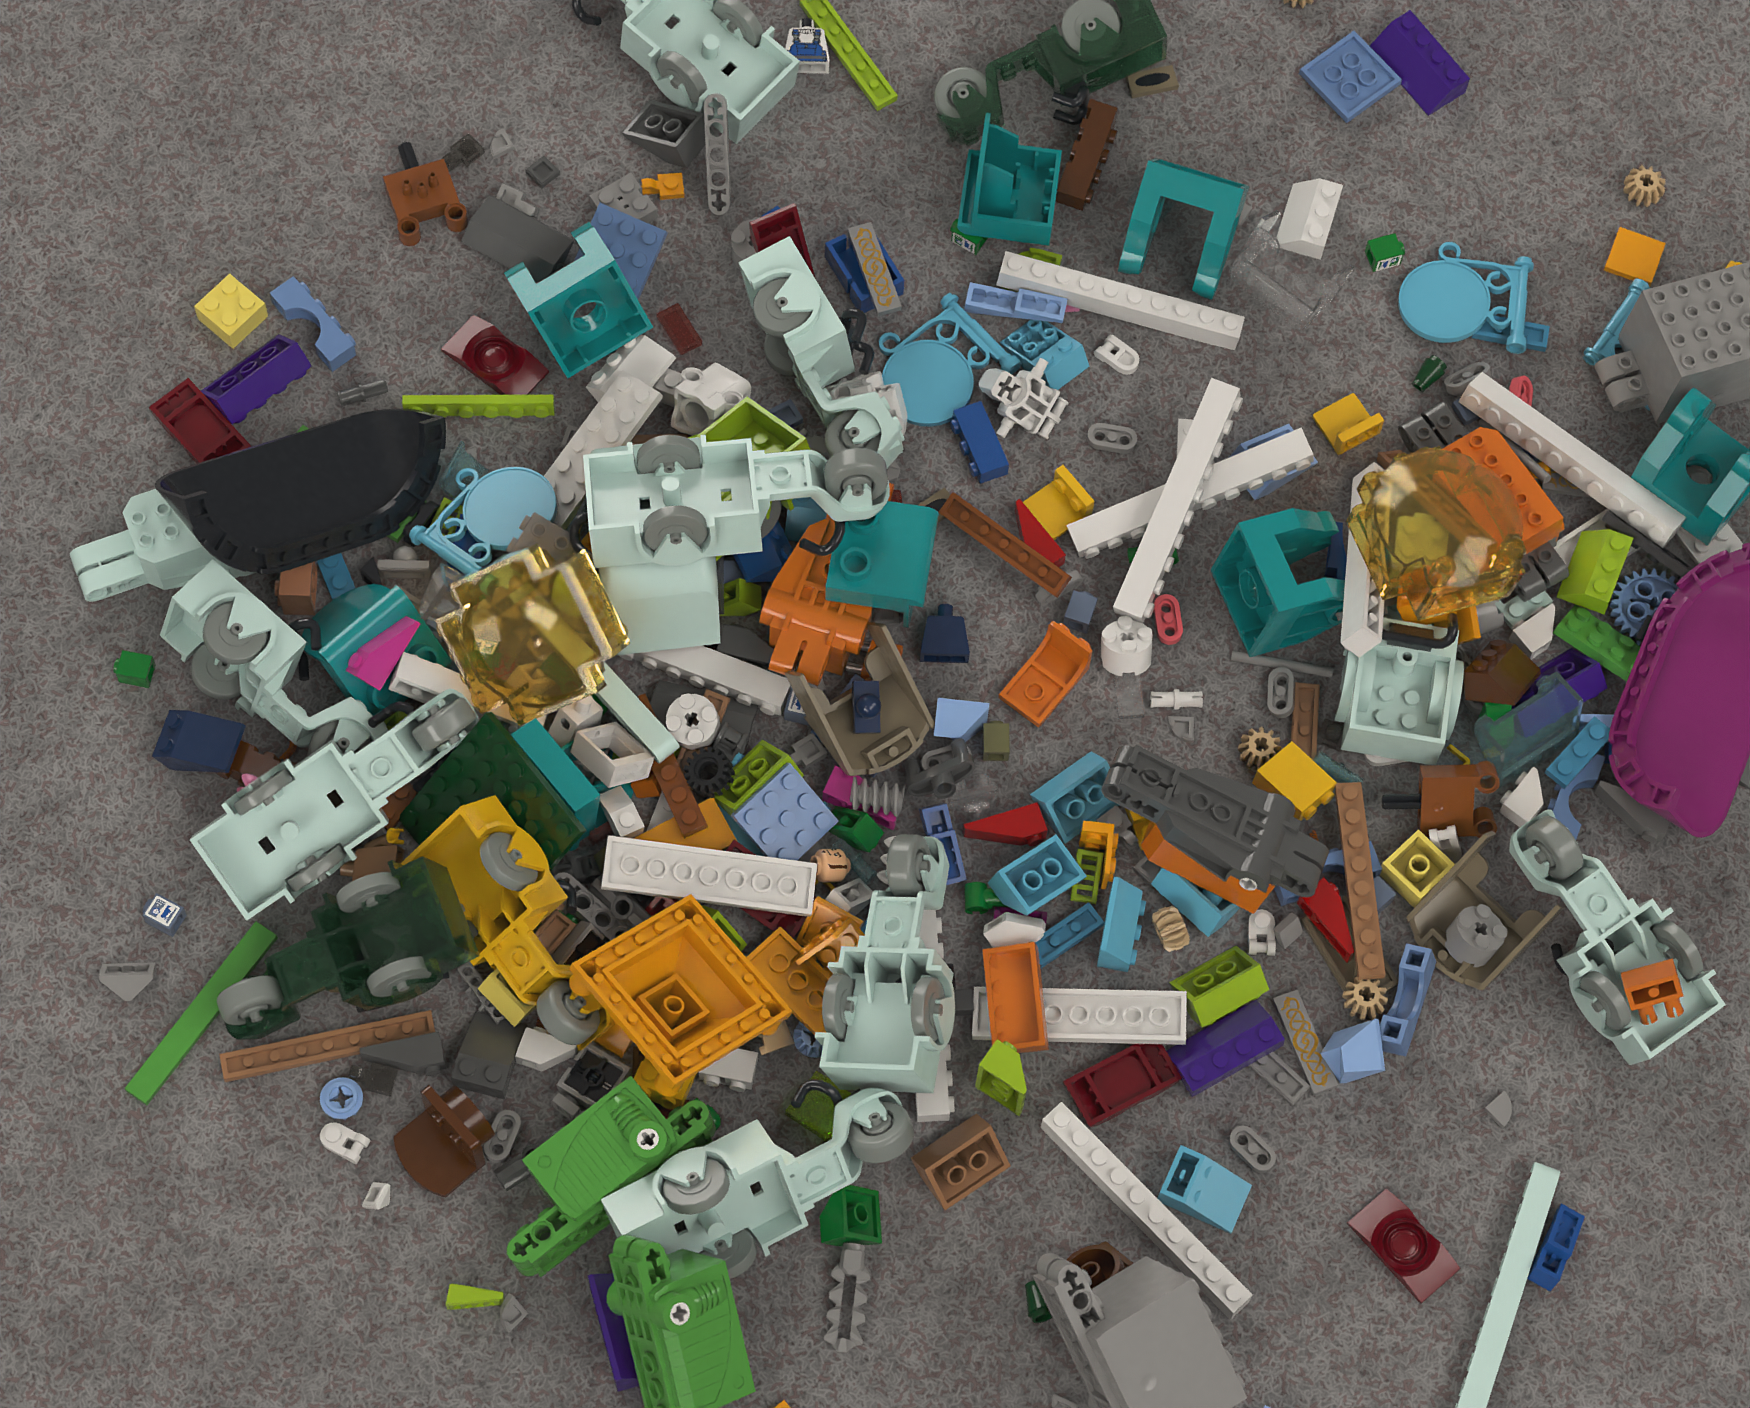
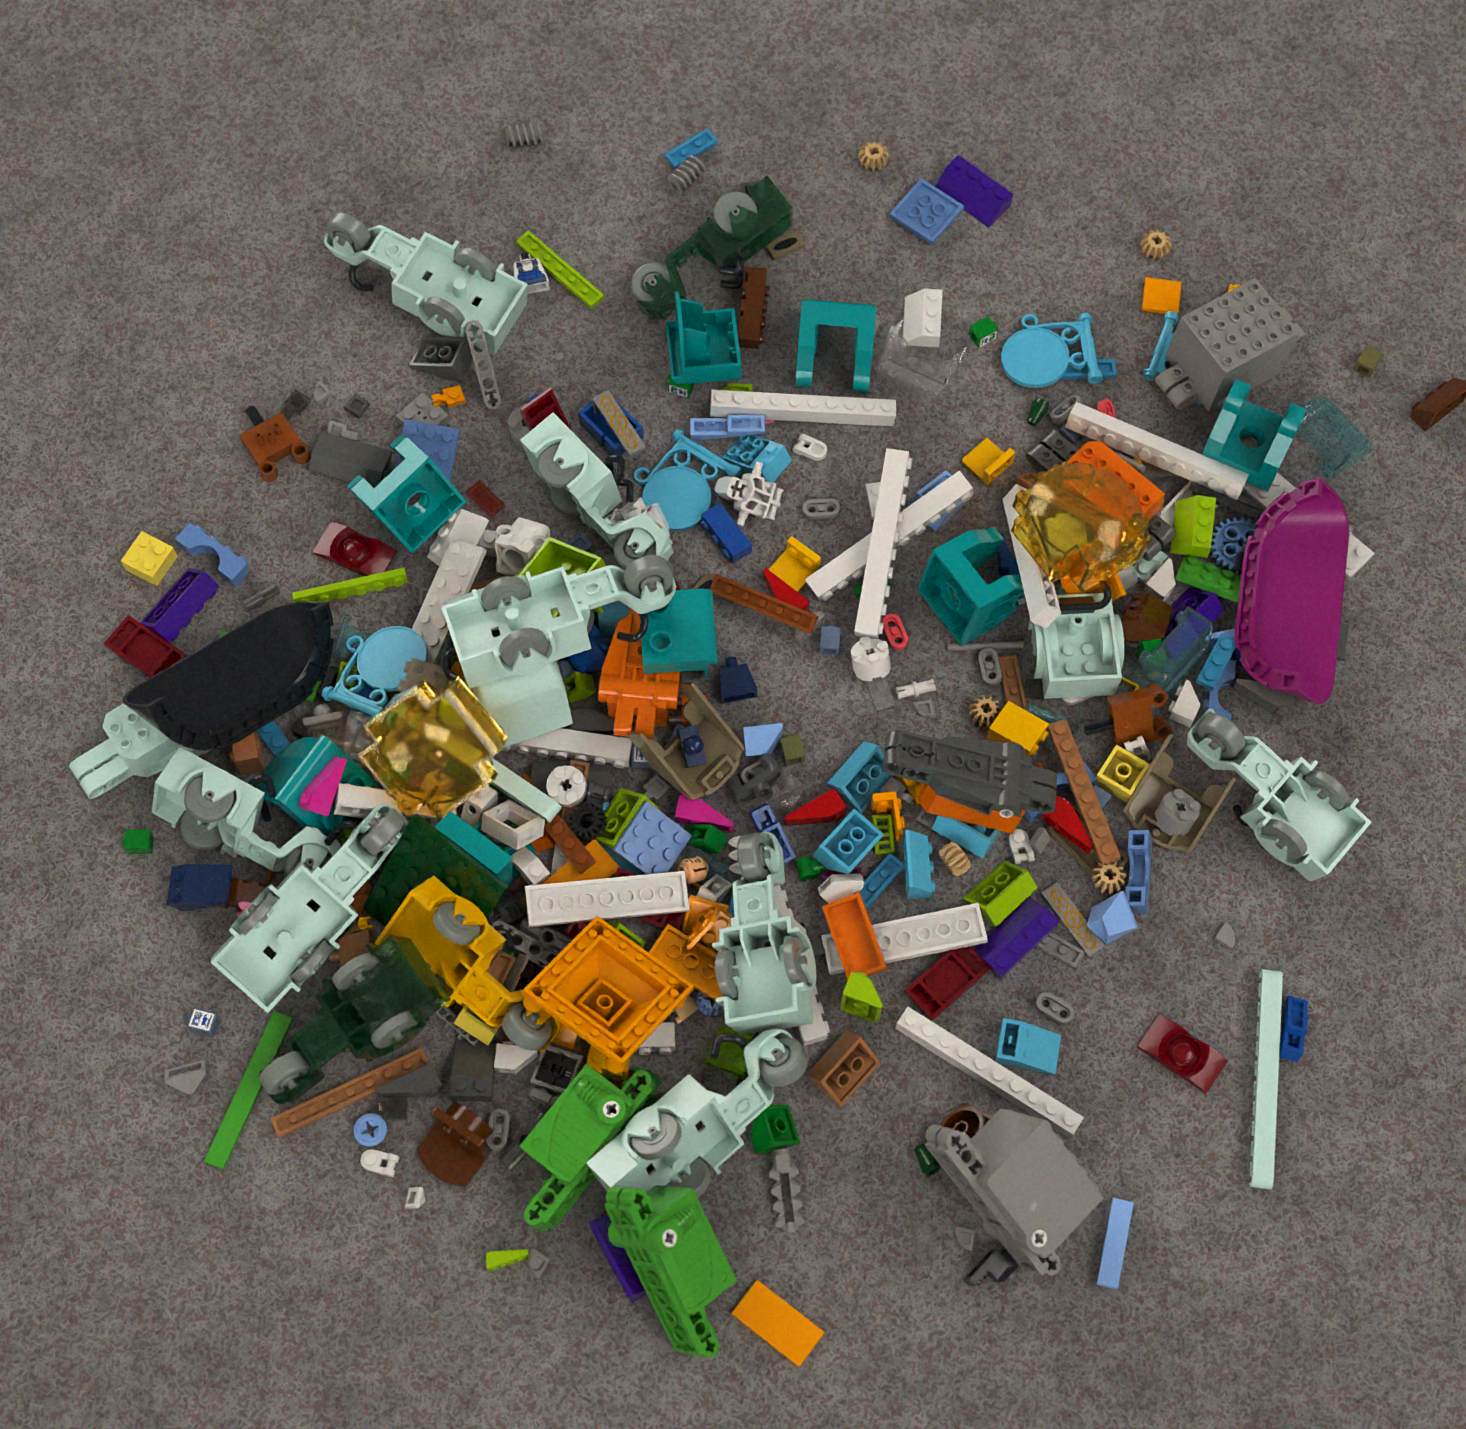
camera: 10 degrees left, 0 degrees up
(877, 797) = (716, 811): light grey piece -> none
(1048, 674) = (818, 691): orange bracket -> none
(1651, 986) = (1318, 820): orange brick -> none

